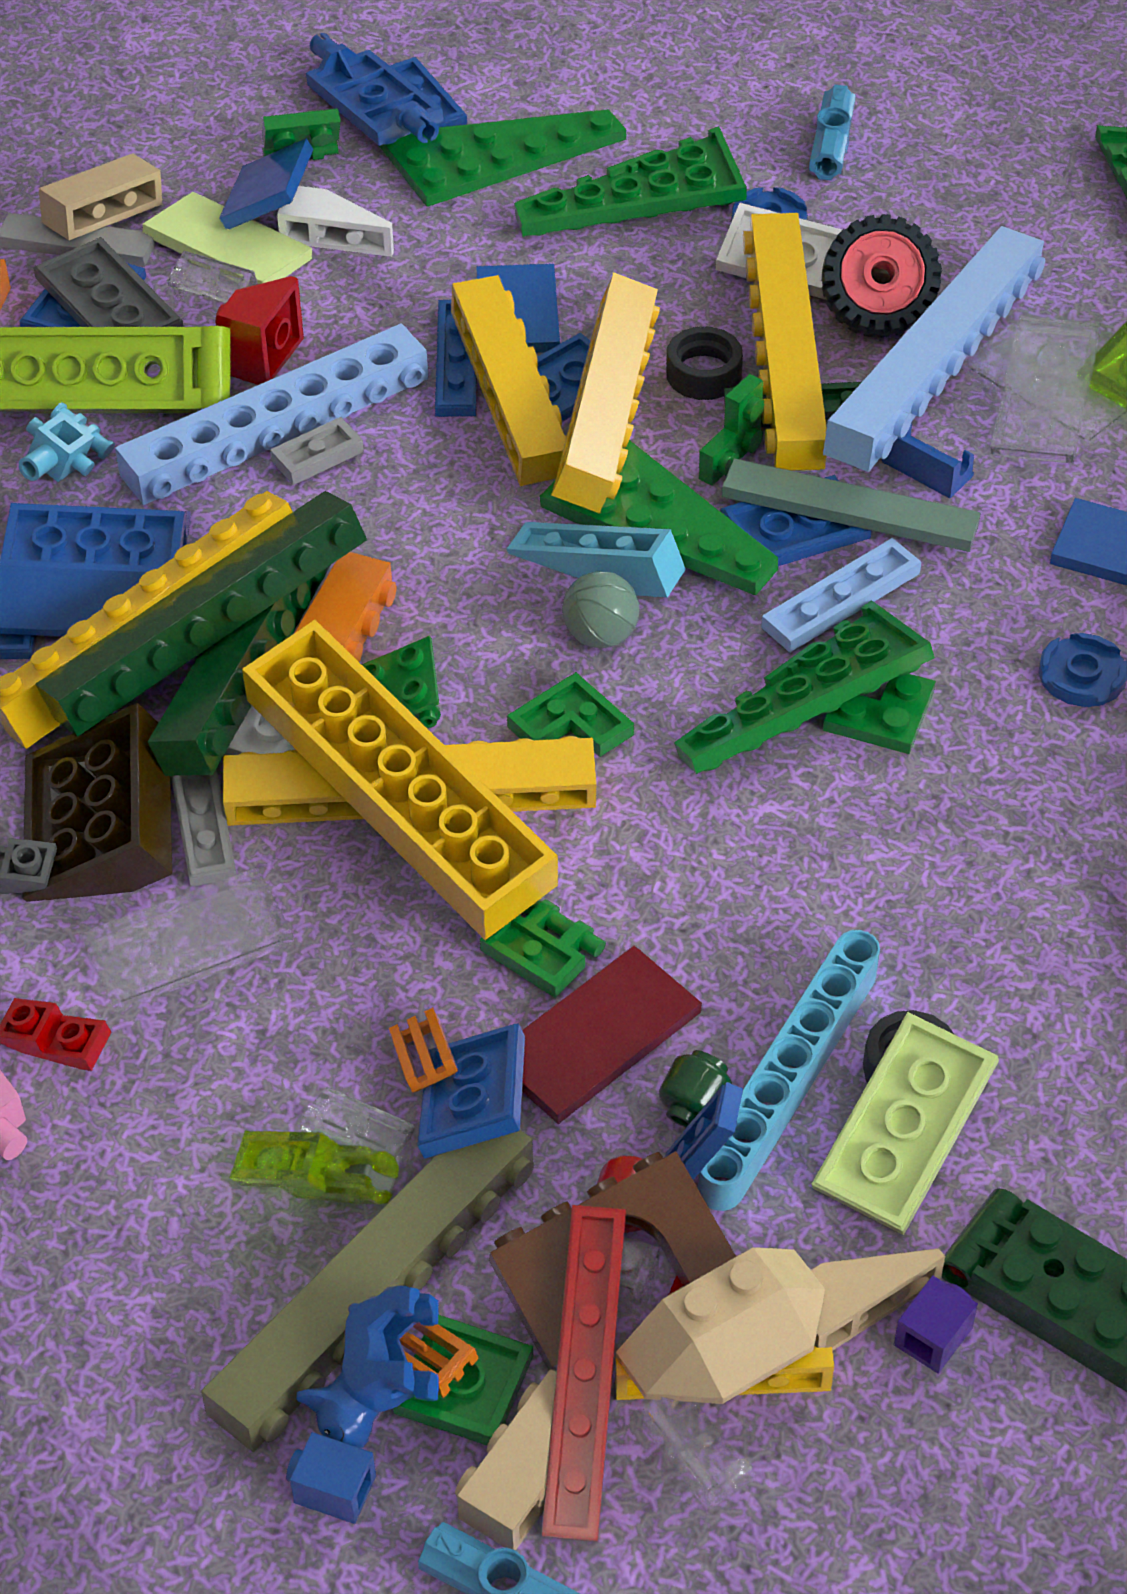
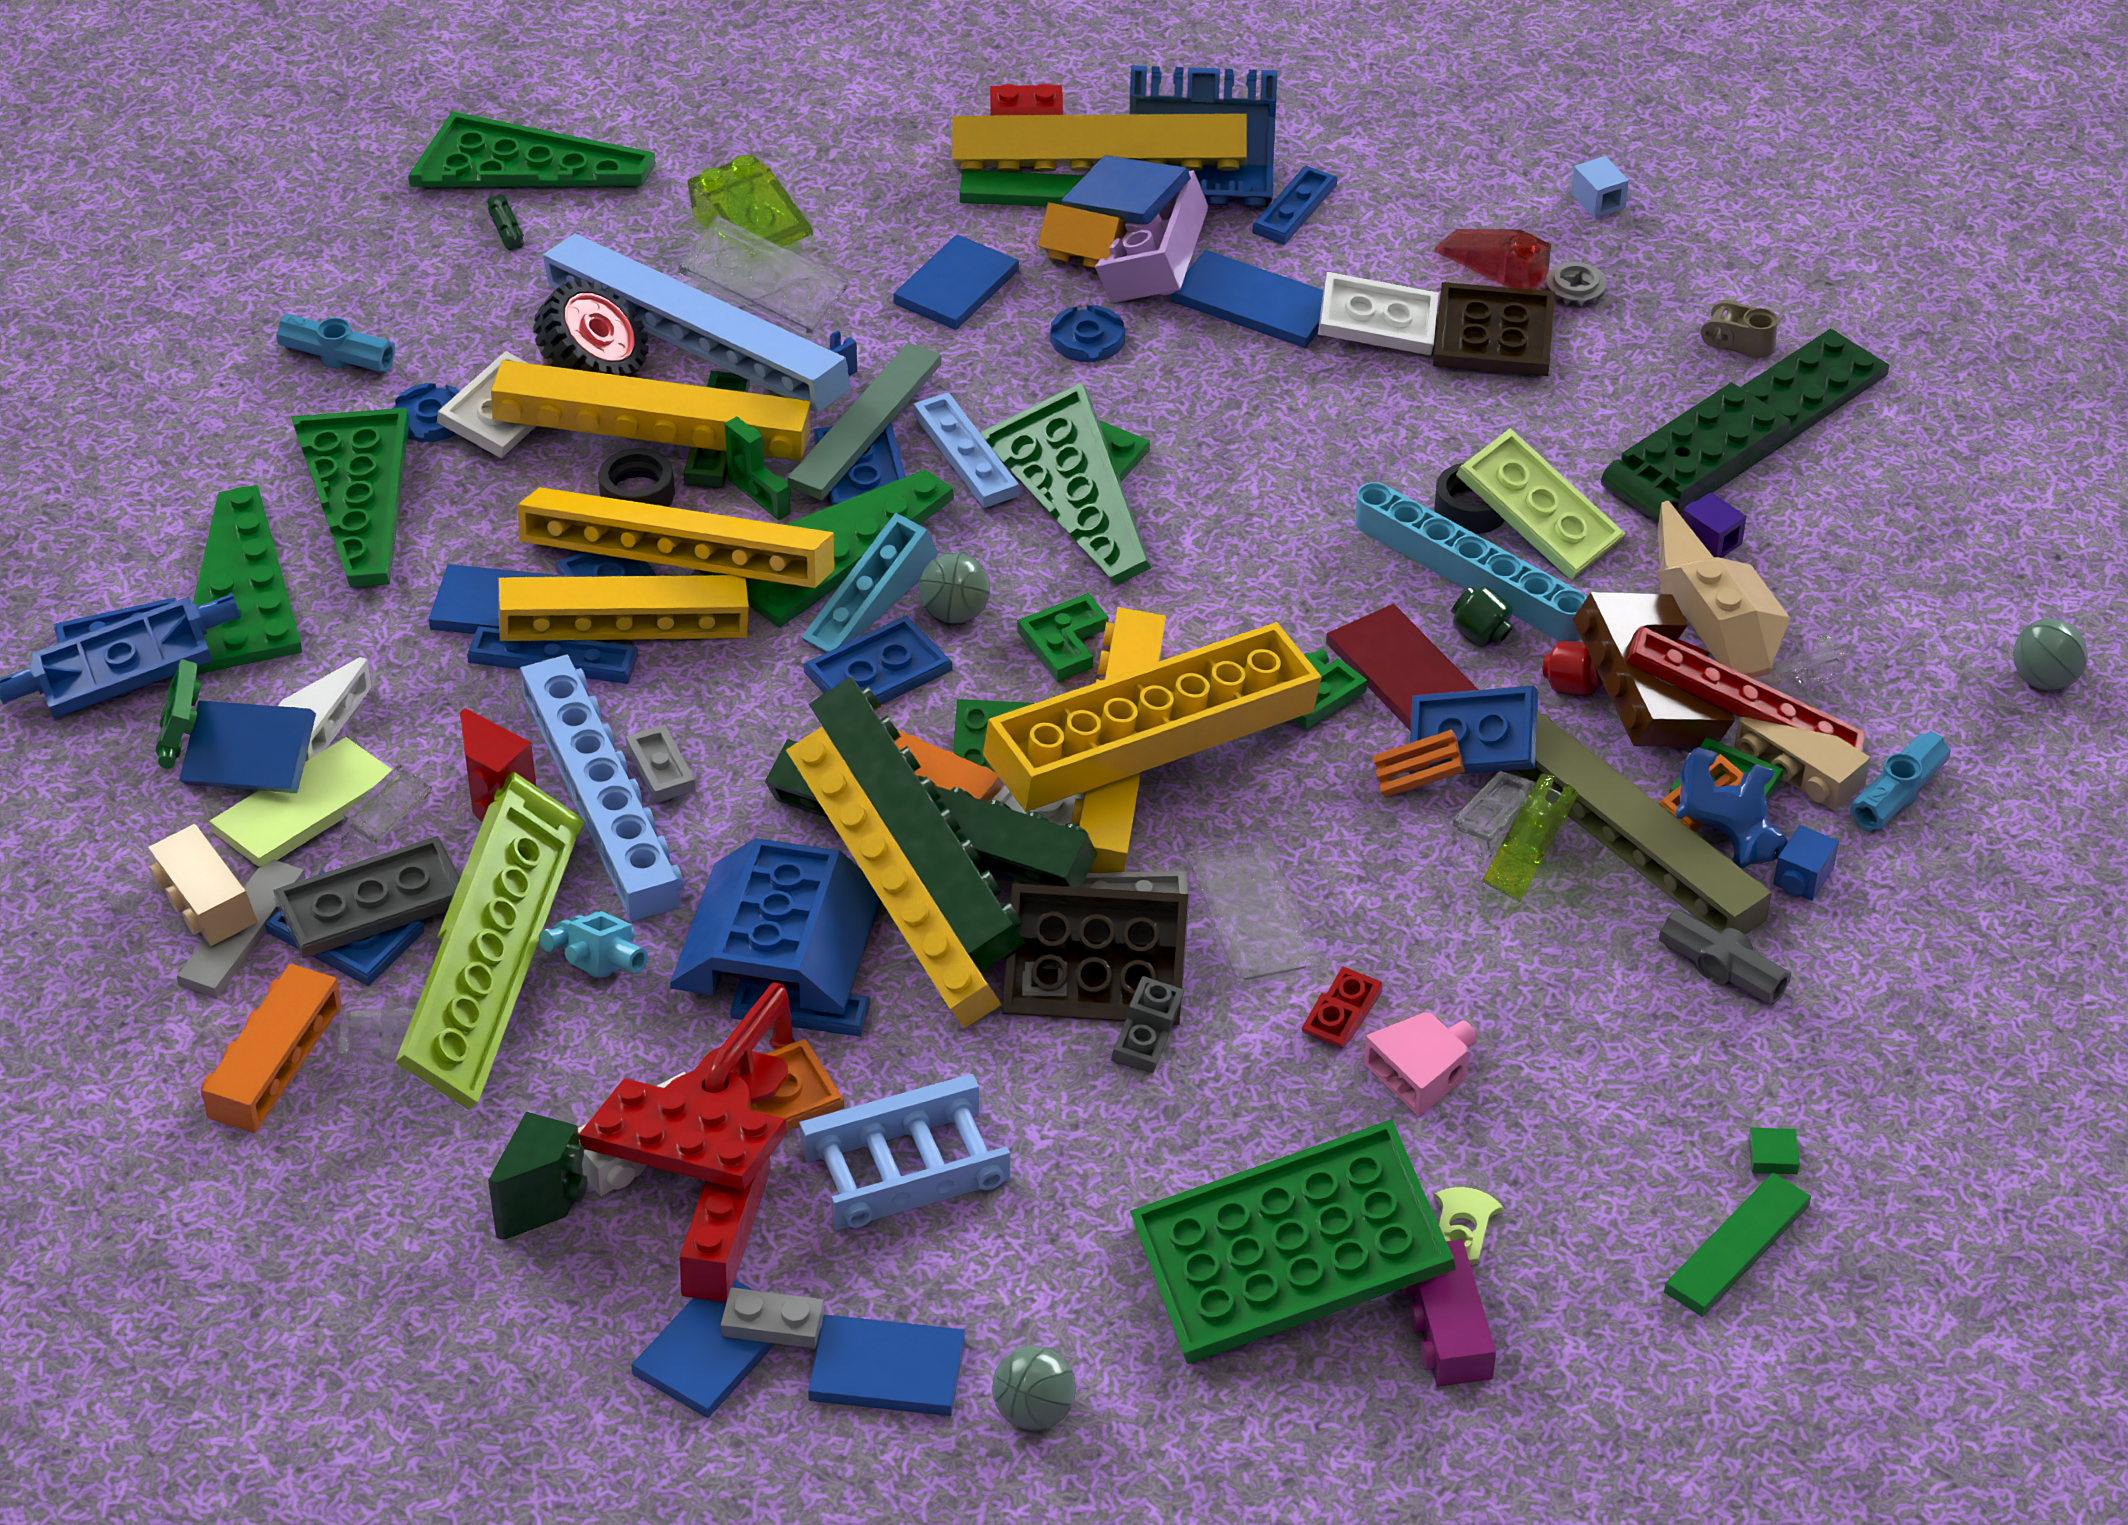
camera: 80 degrees left, 5 degrees down
(163, 1400) = (1725, 956): none -> dark grey piece
(495, 585) = (886, 660): none -> blue tile
(709, 1129) = (1560, 593): blue tile -> none
(1068, 206) = (505, 222): none -> dark green axle

